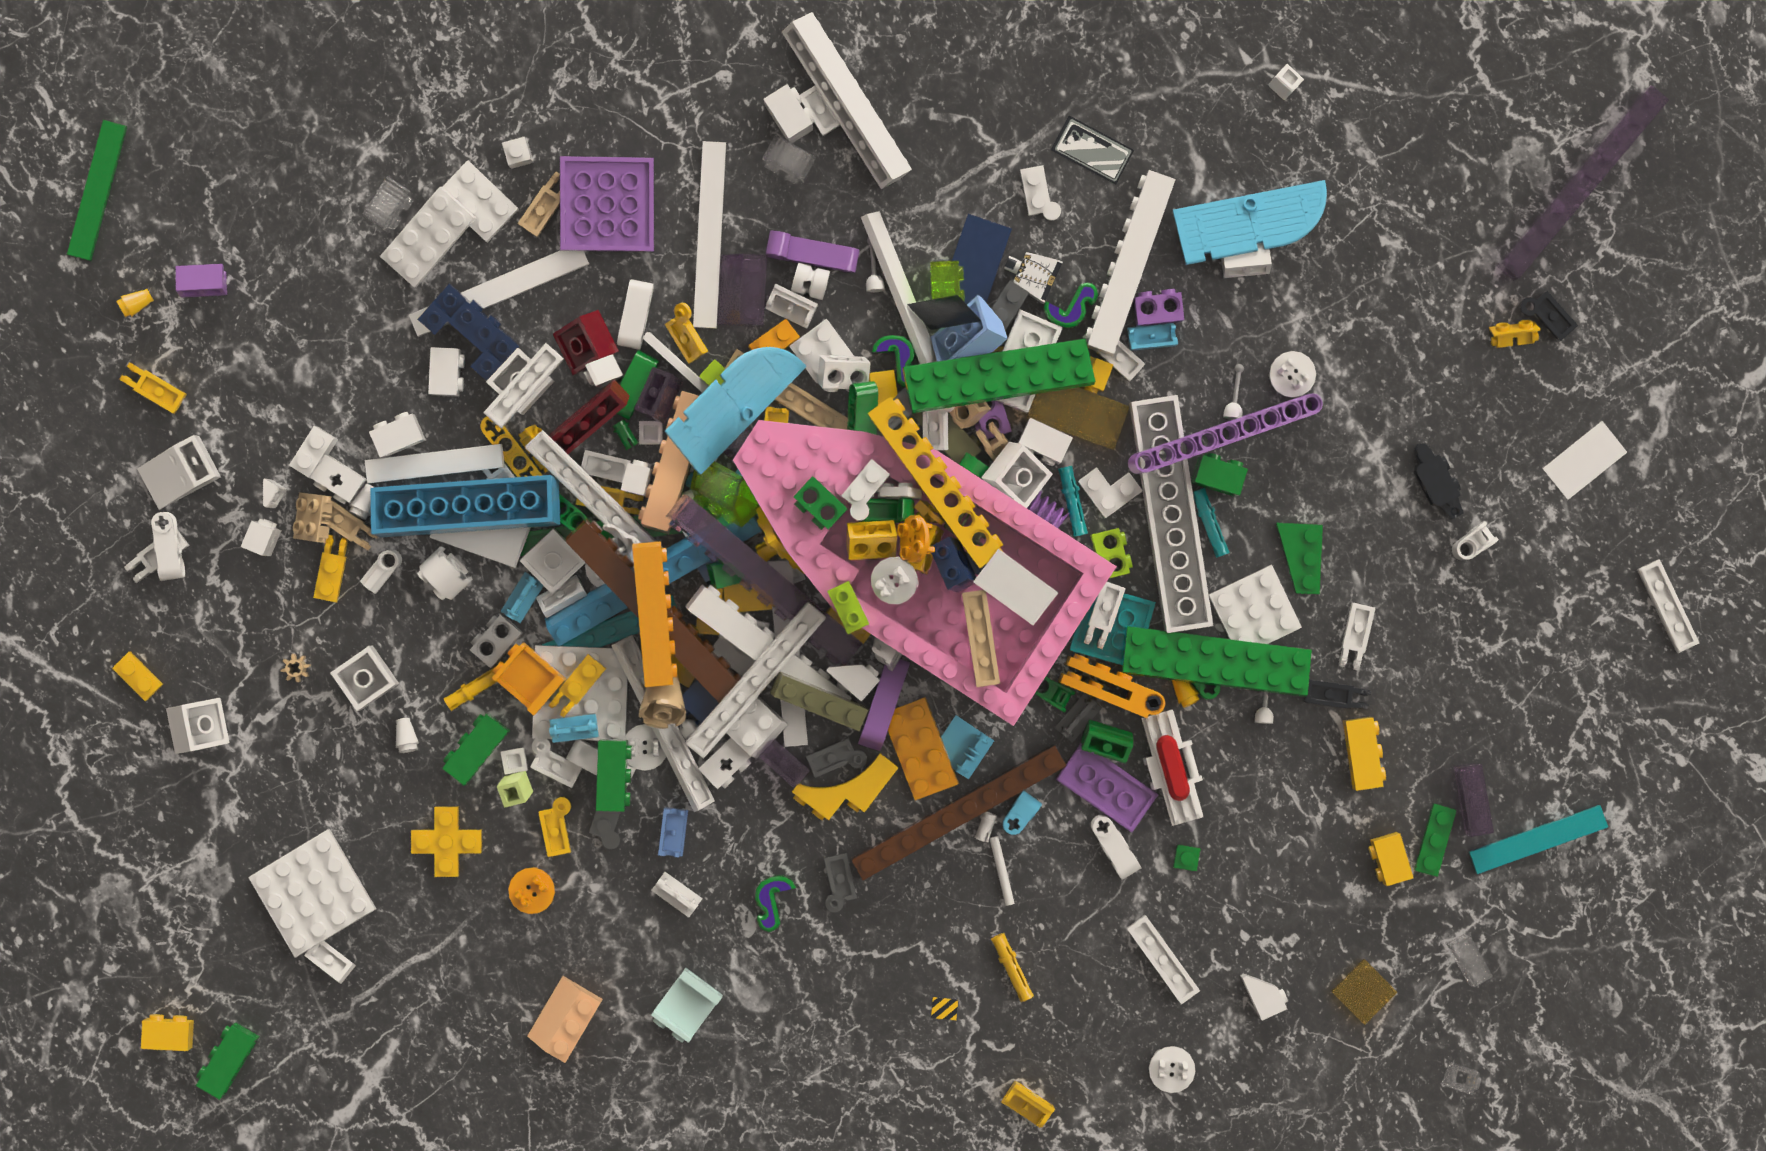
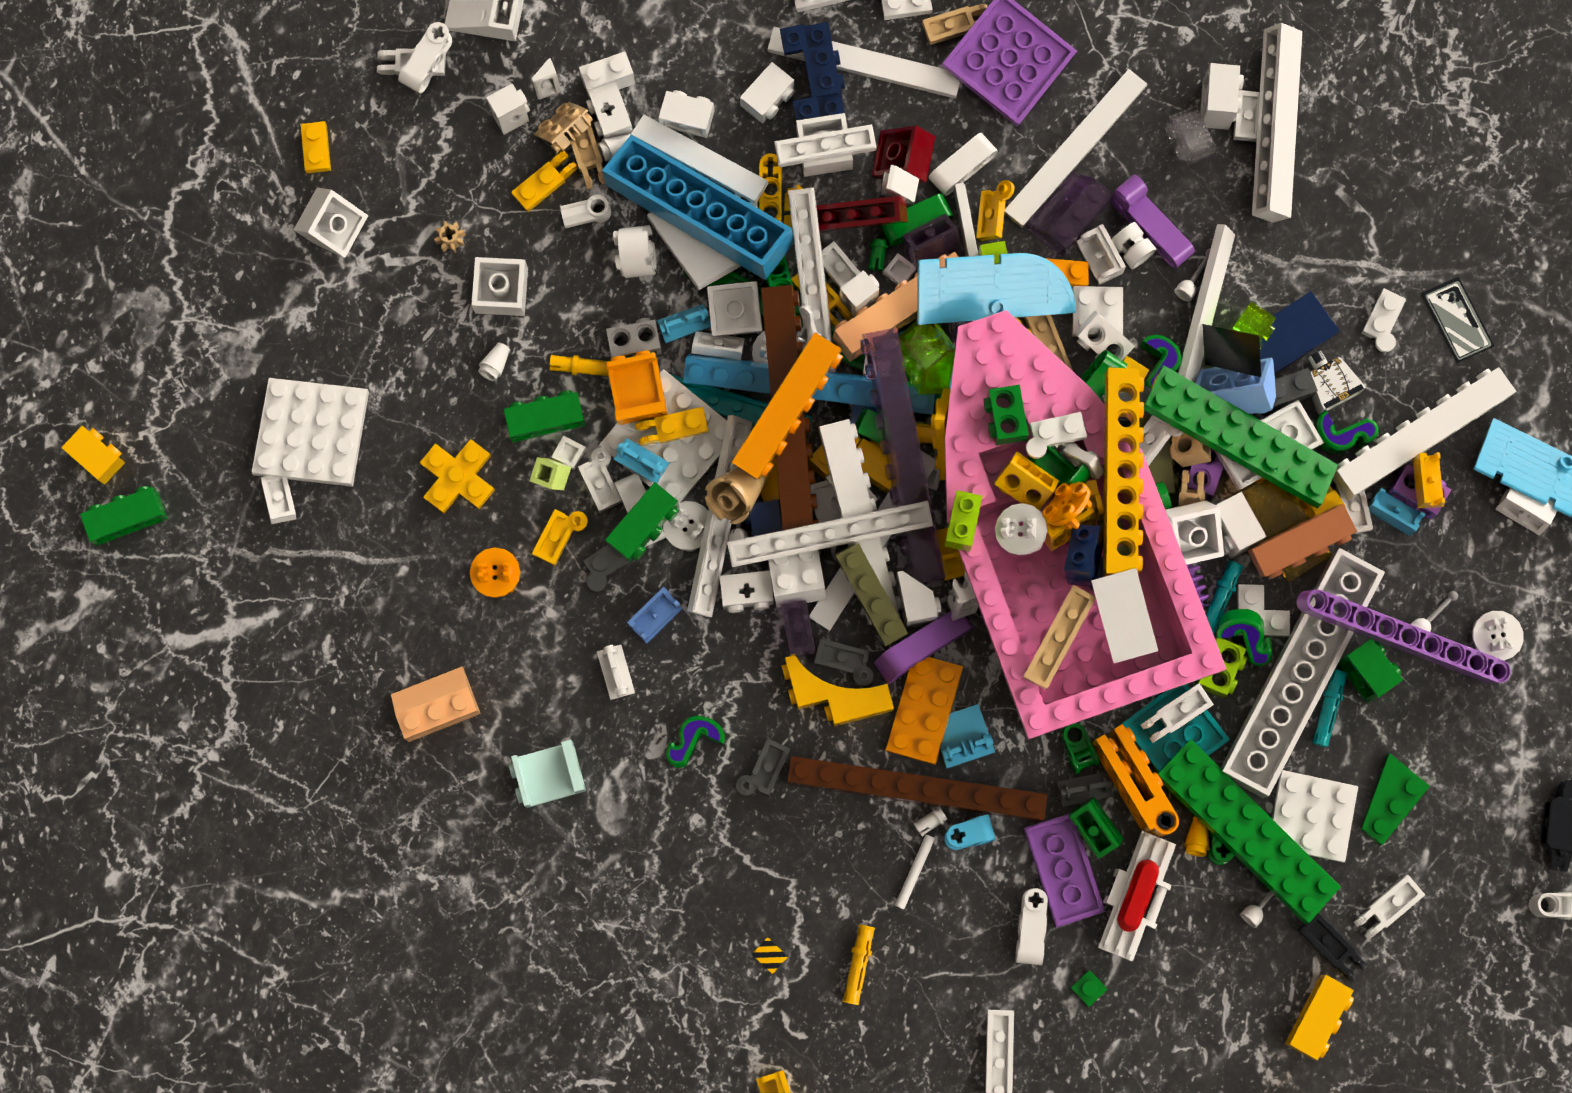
camera: 40 degrees right, 10 degrees down
(1100, 417) = (1301, 541): none -> nougat brick
(1111, 510) = (1252, 628): none -> green animal
(1160, 300) = (1428, 481): none -> yellow hinge

